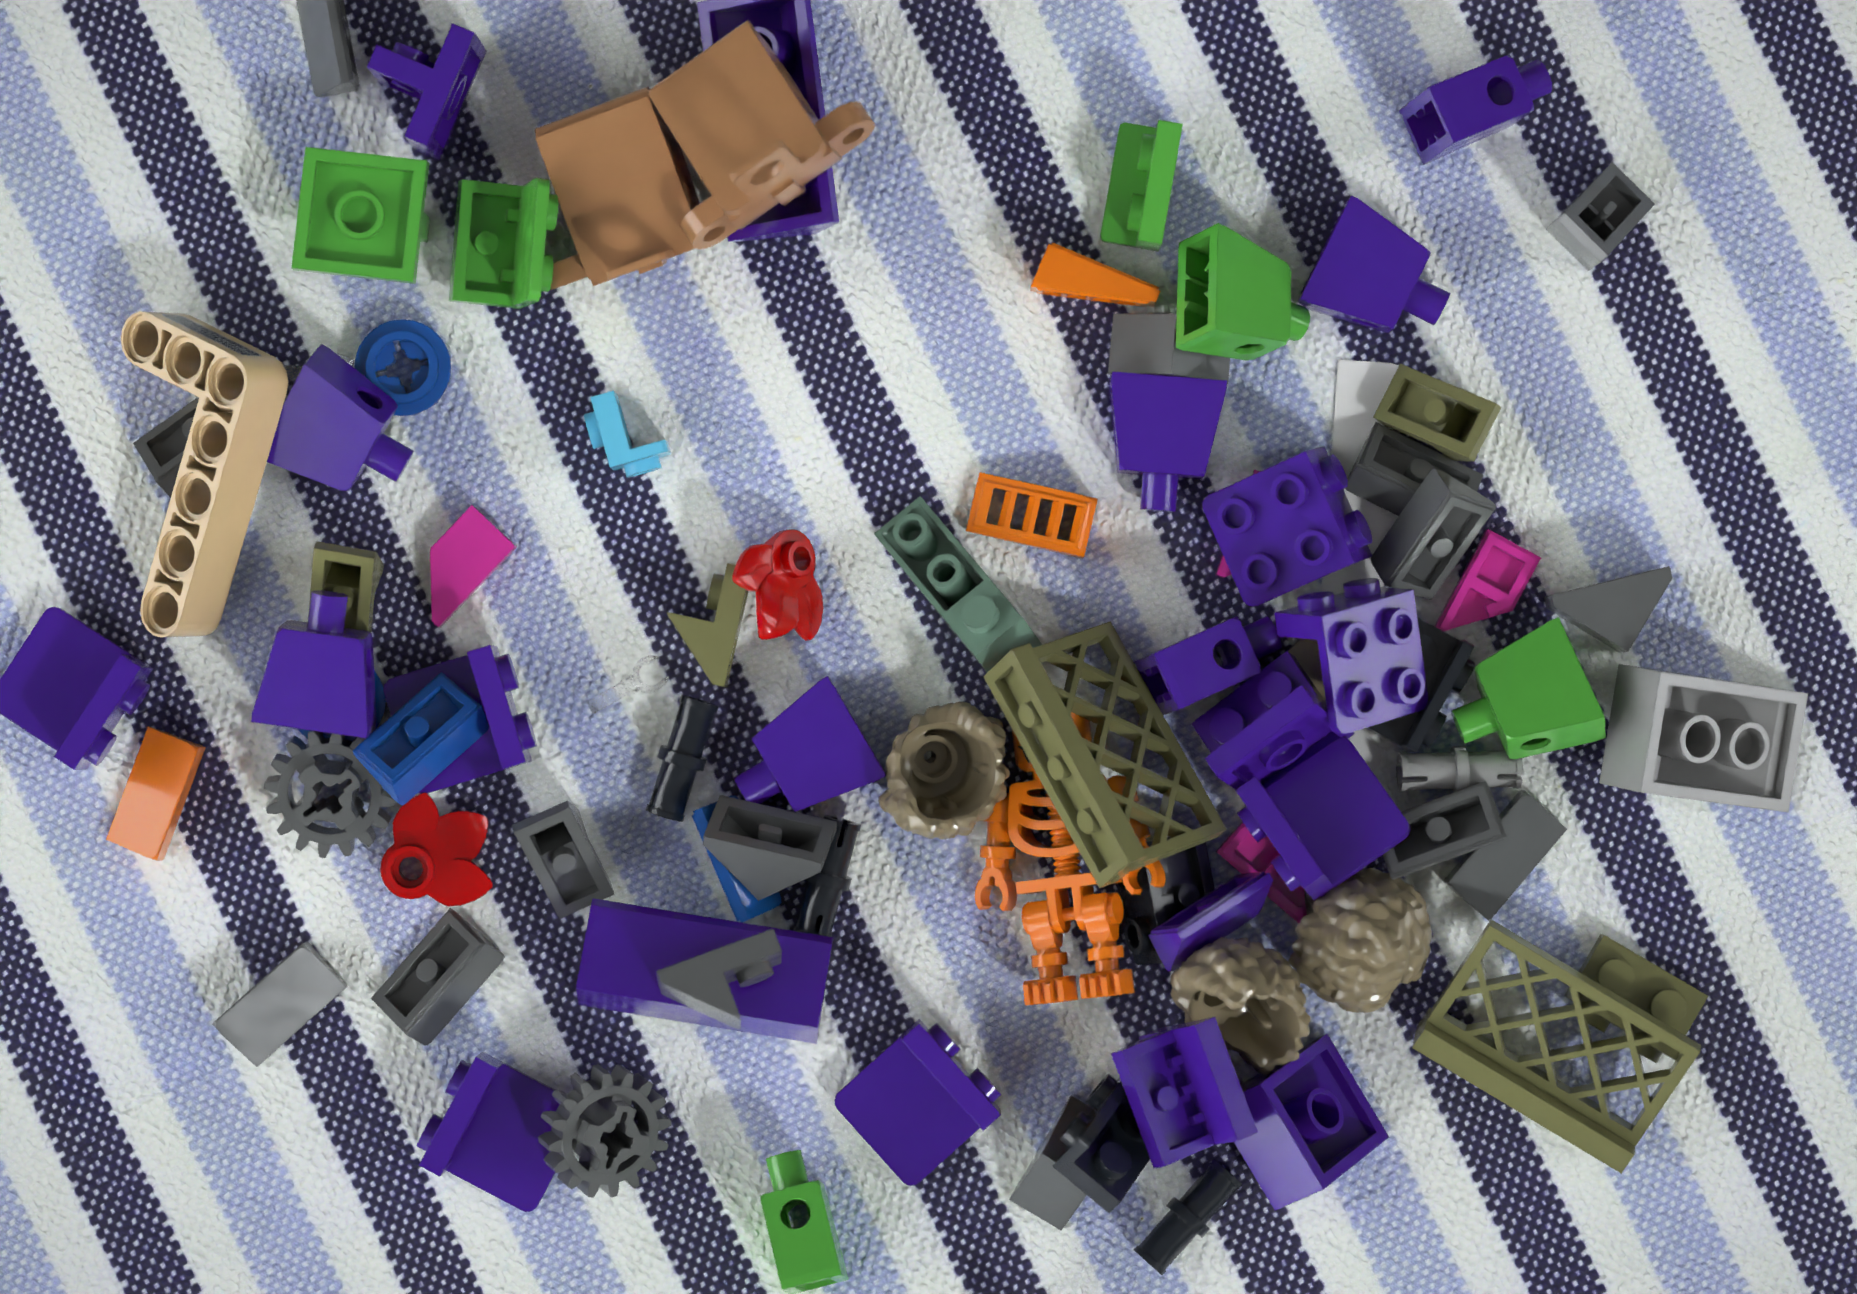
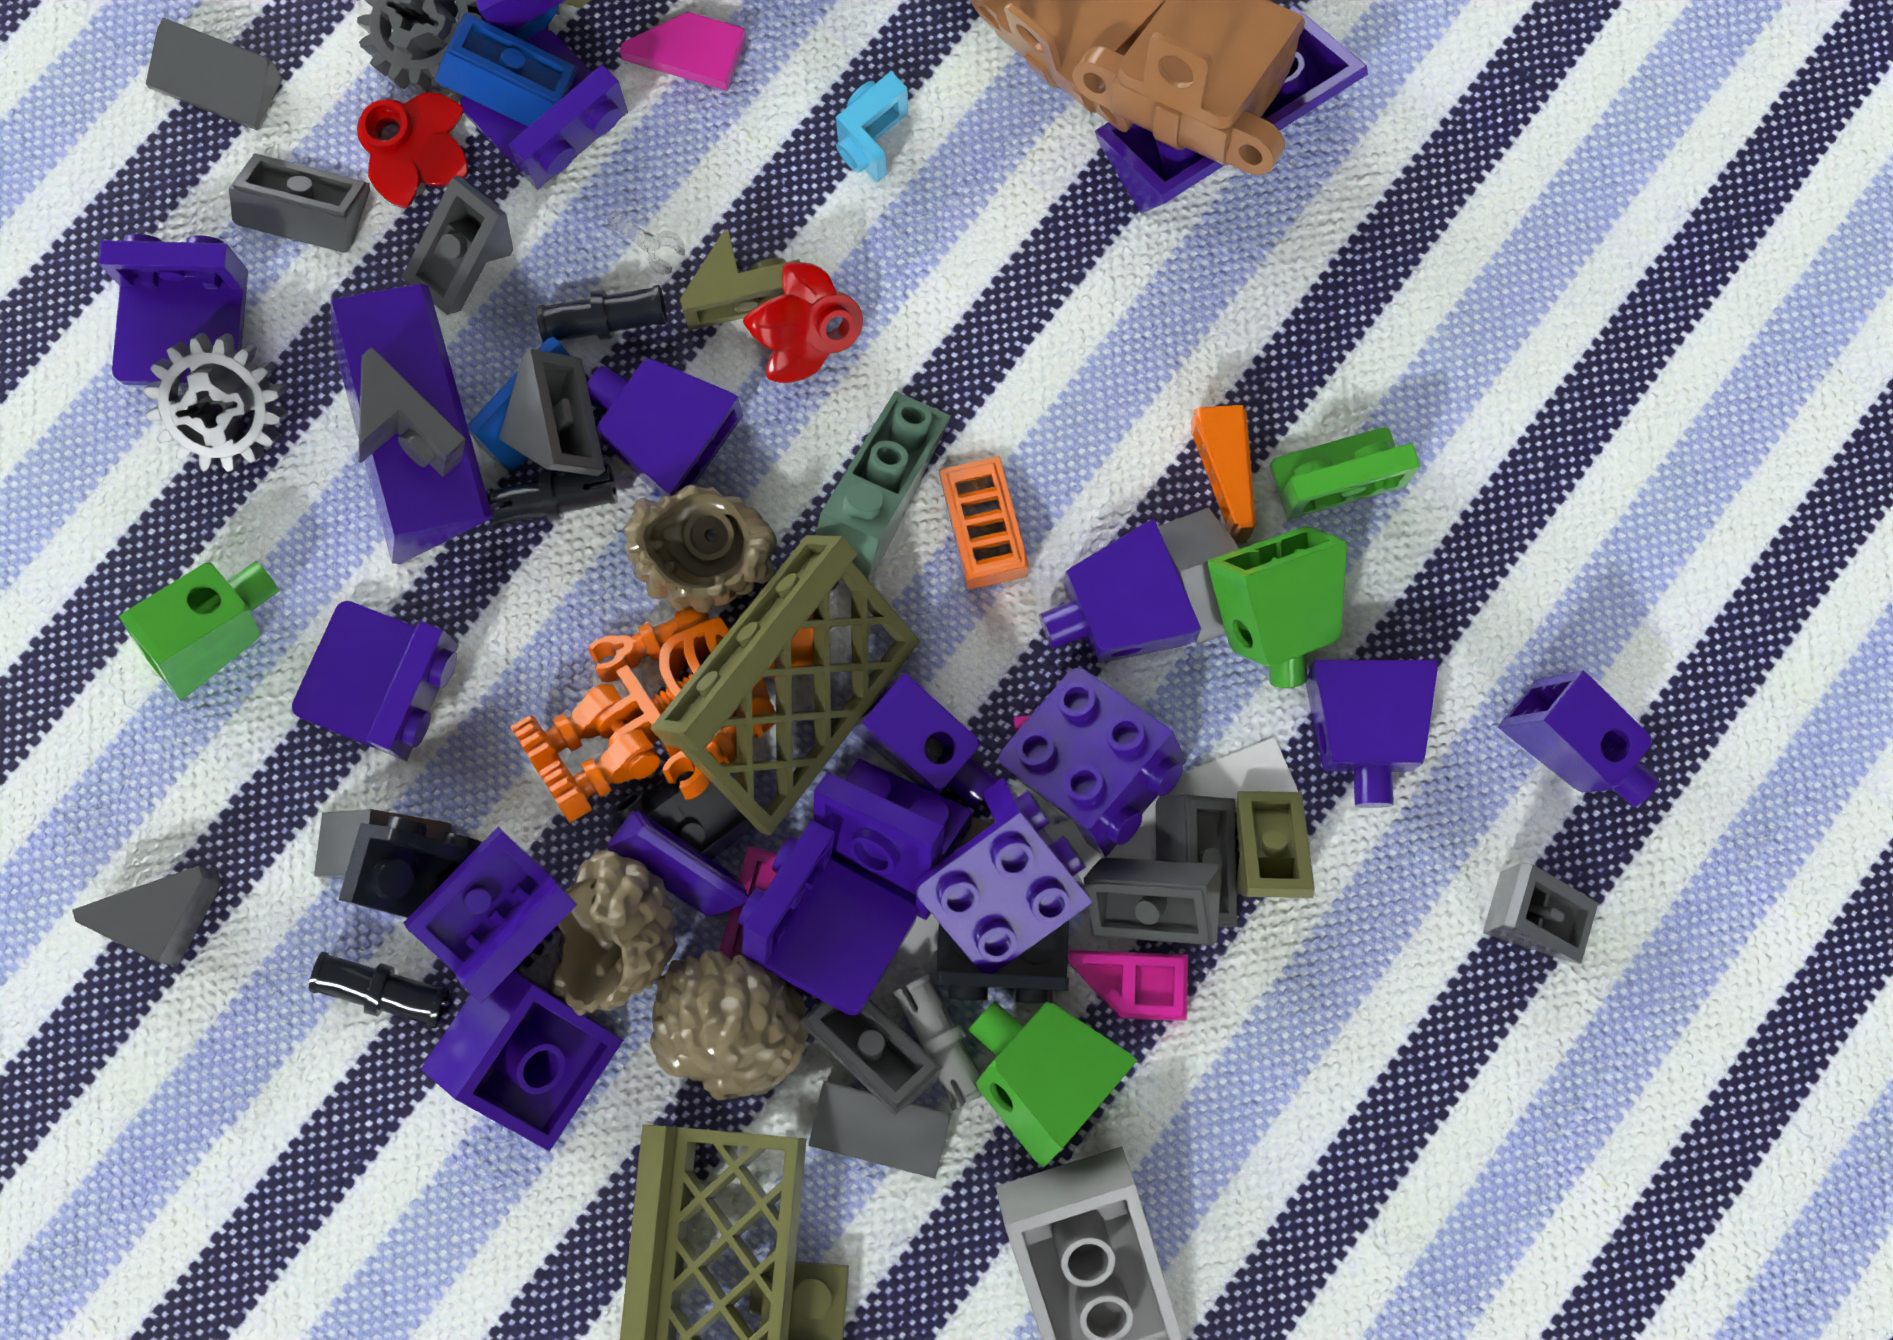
camera: 60 degrees right, 10 degrees down
(1613, 609) = (1173, 1112): dark grey slope -> none

